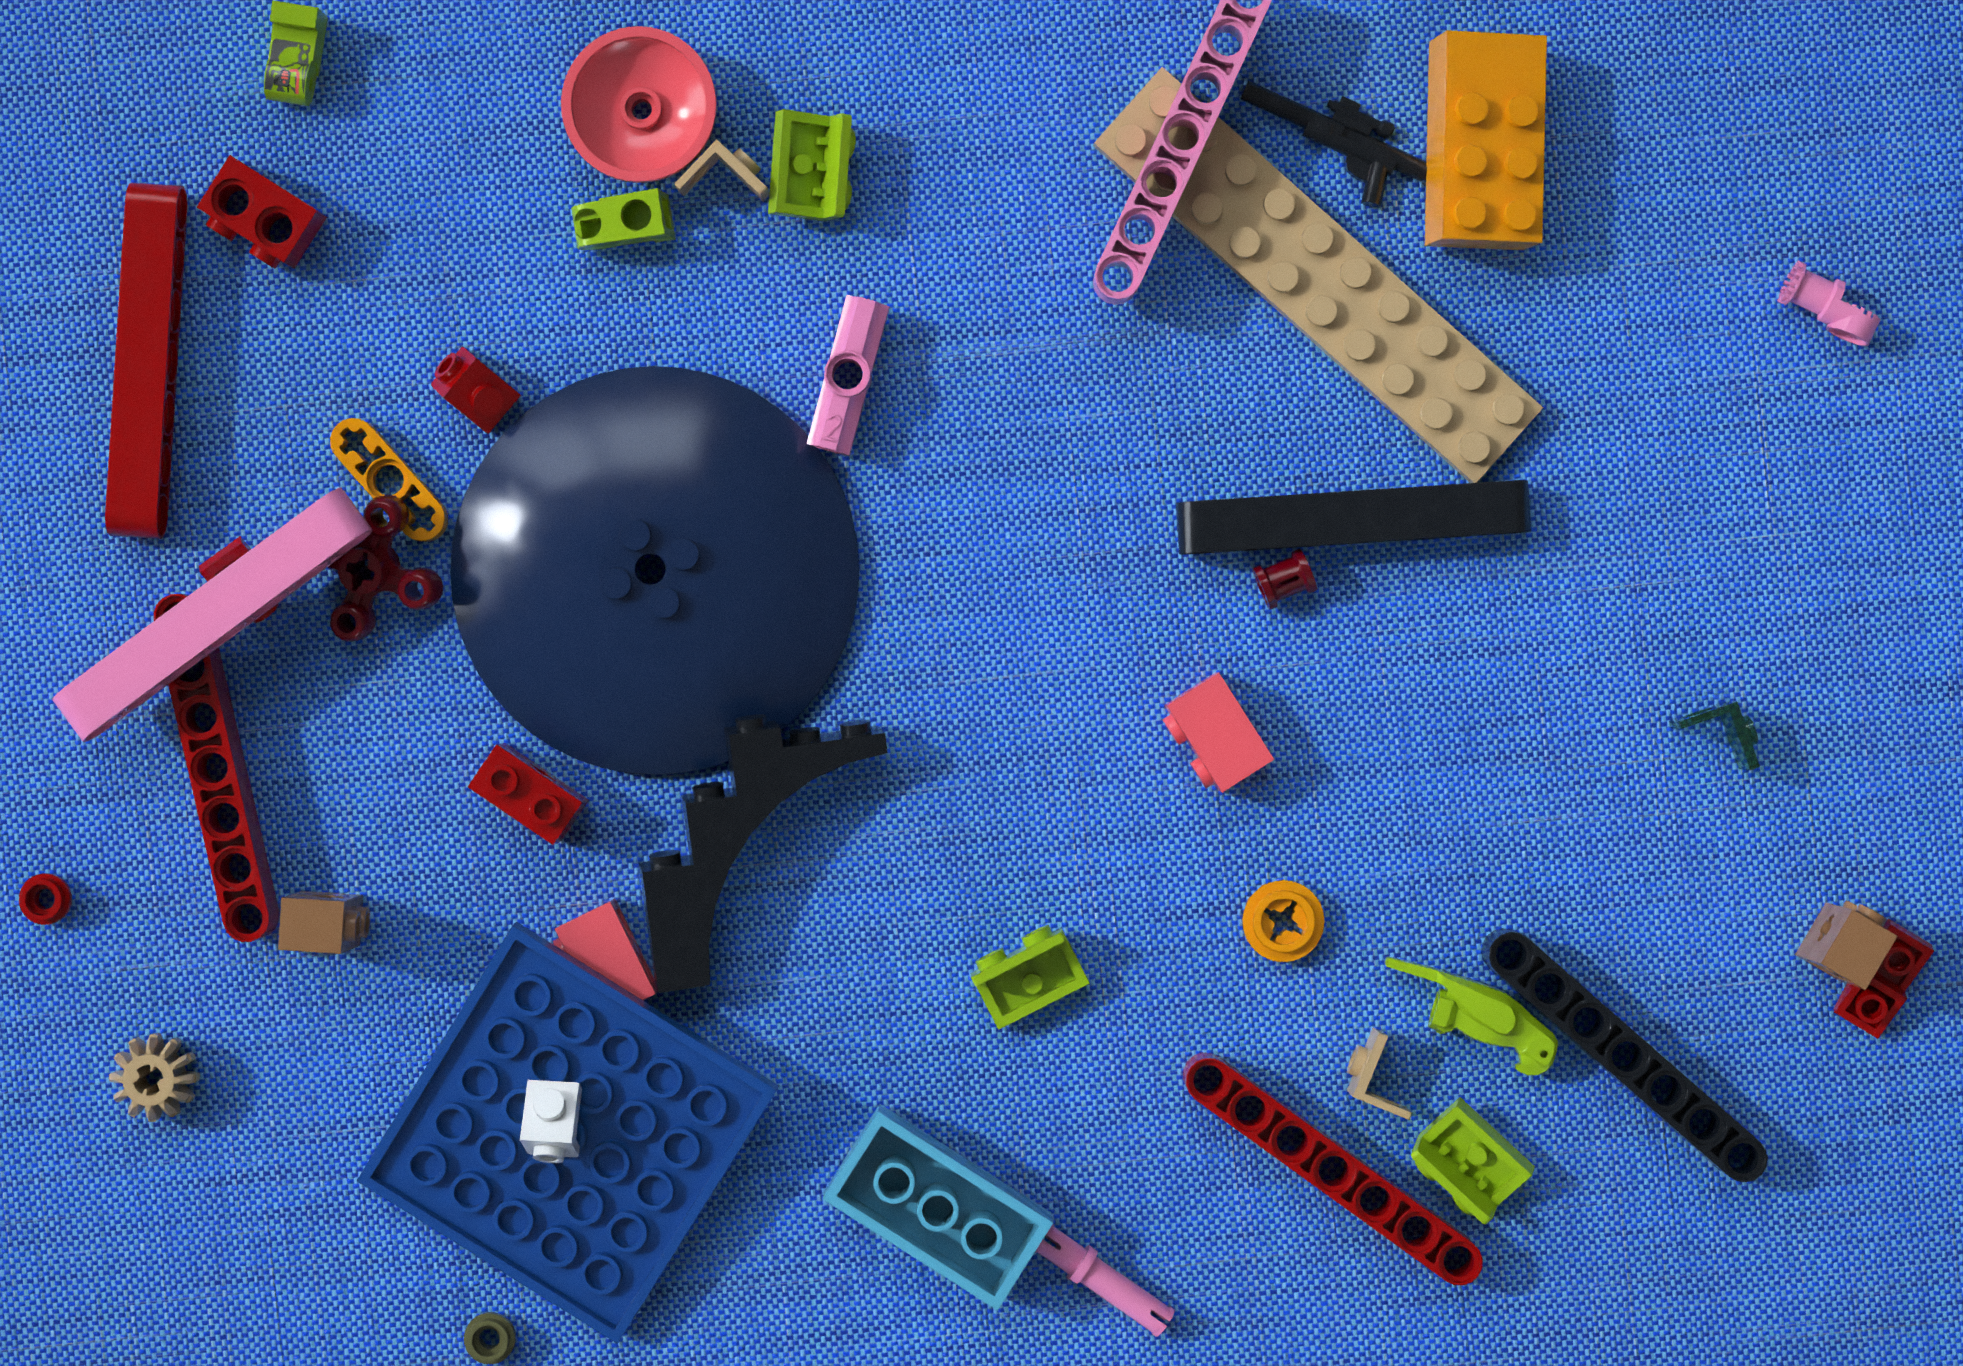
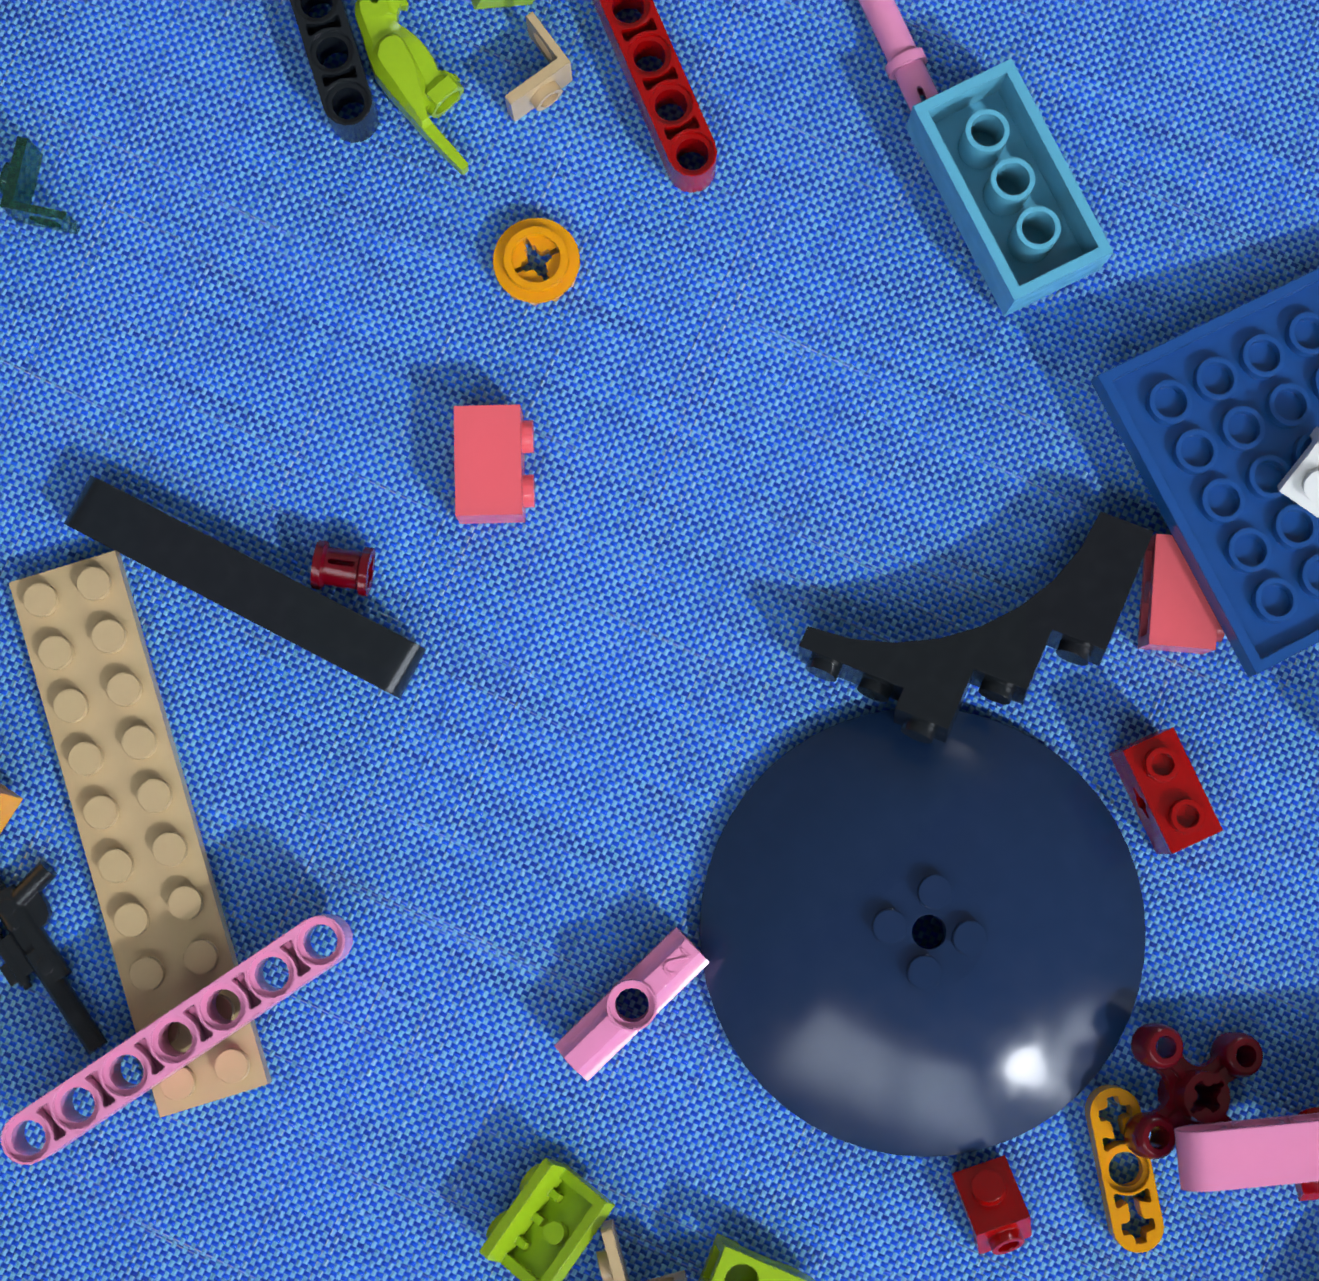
camera: 150 degrees left, 5 degrees down
(1028, 976) = (799, 348): lime bracket -> none

